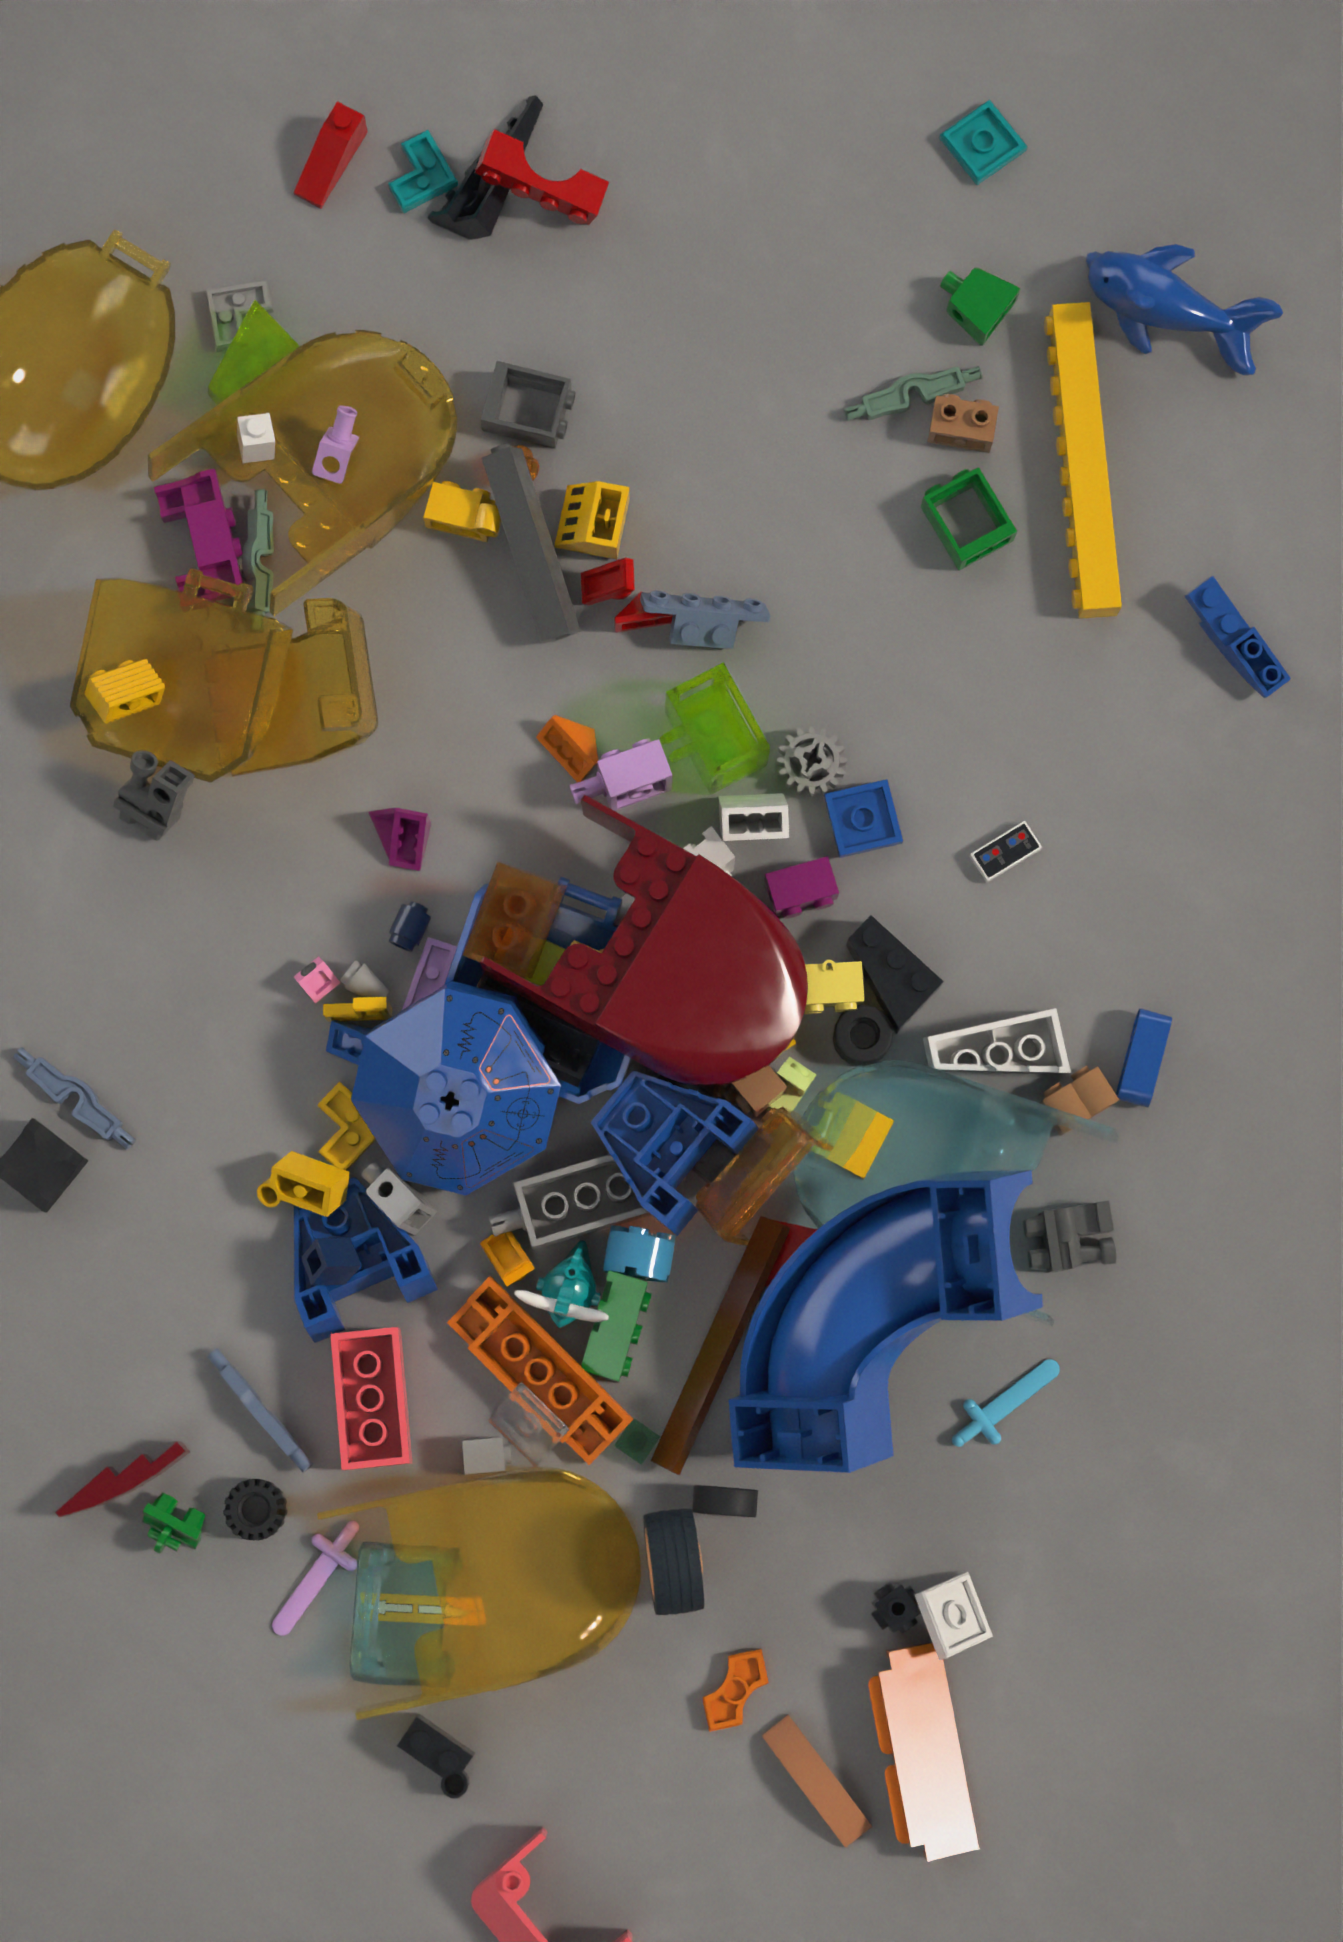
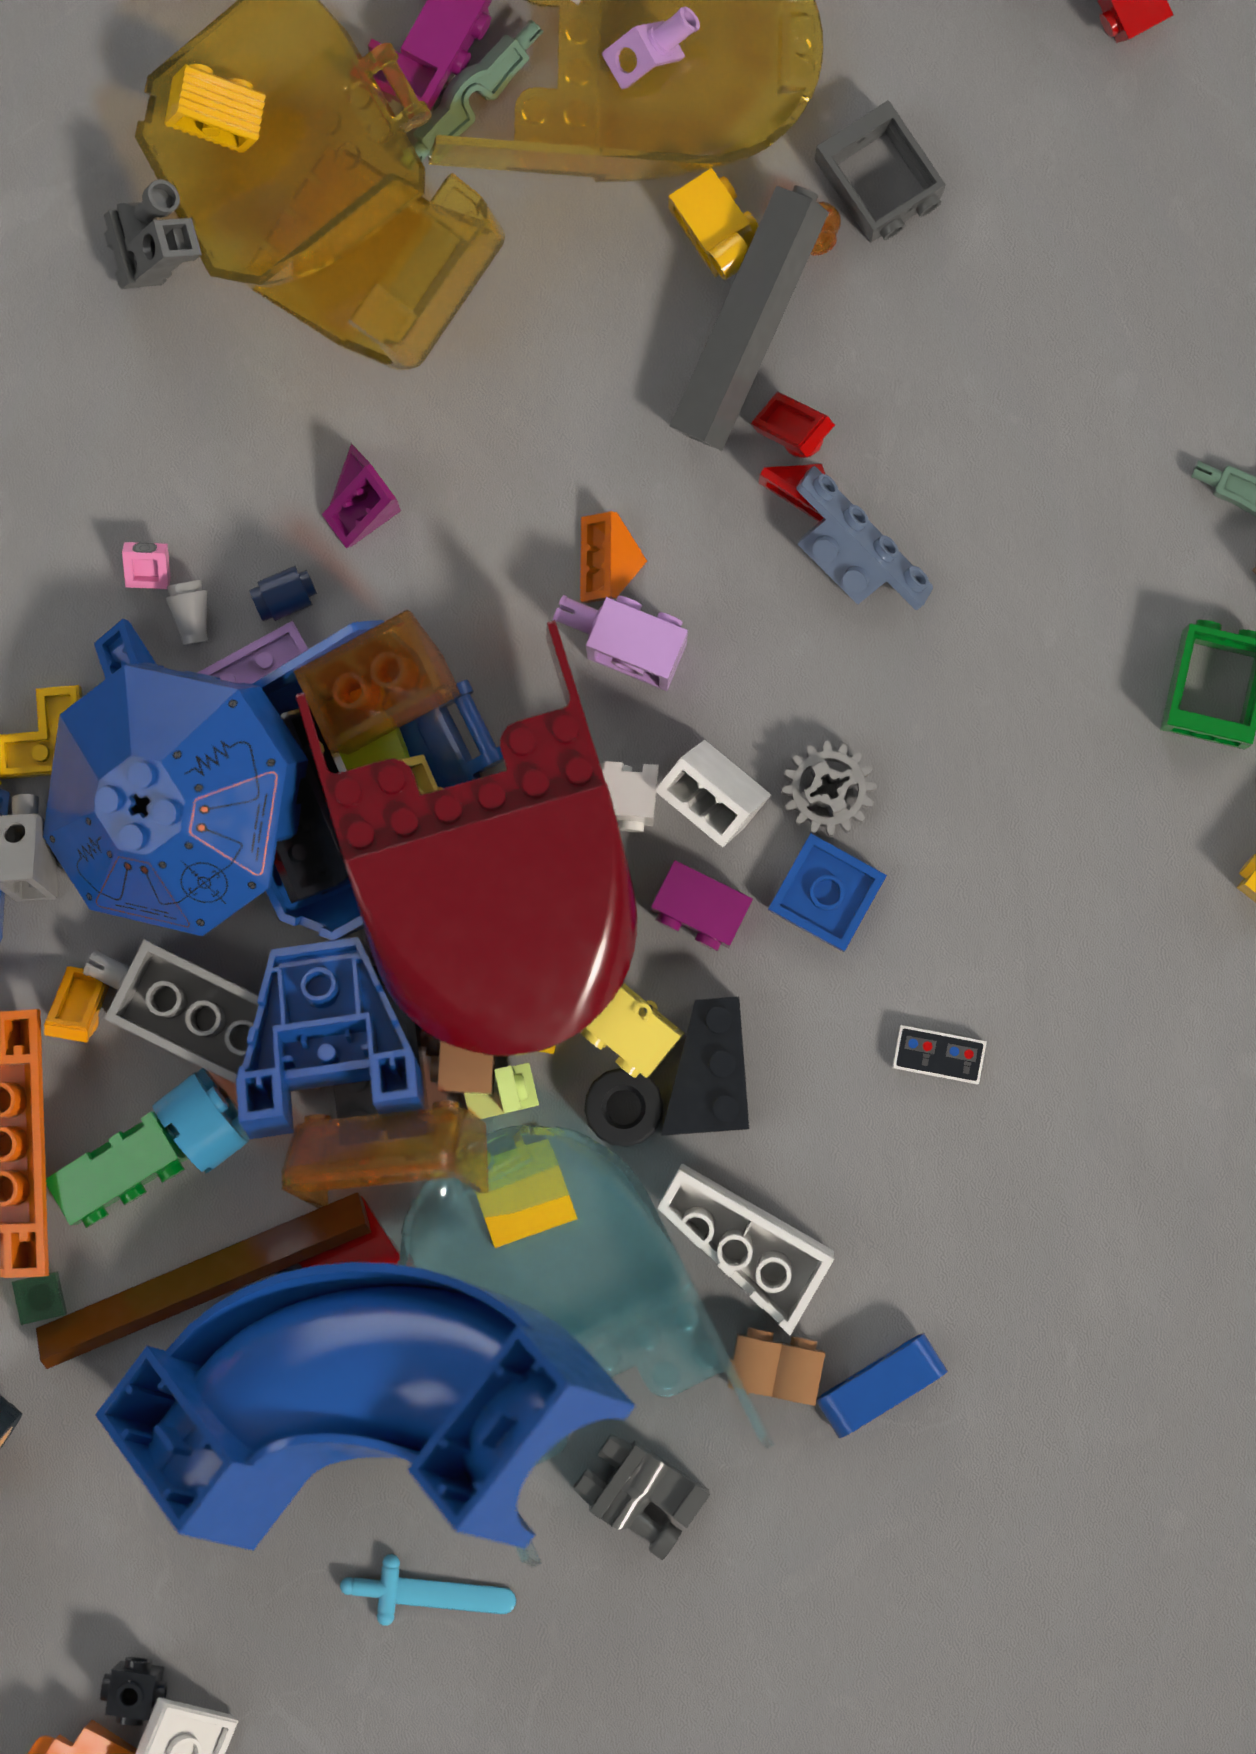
camera: 50 degrees right, 5 degrees up
(360, 1010) = (156, 632): yellow tile -> none
(568, 1290) = (102, 1091): teal helmet -> none
(593, 518) = (839, 348): yellow slope -> none
(715, 730) = (756, 670): clear neon green piece -> none
(725, 1501) = (64, 1435): black tyre -> none

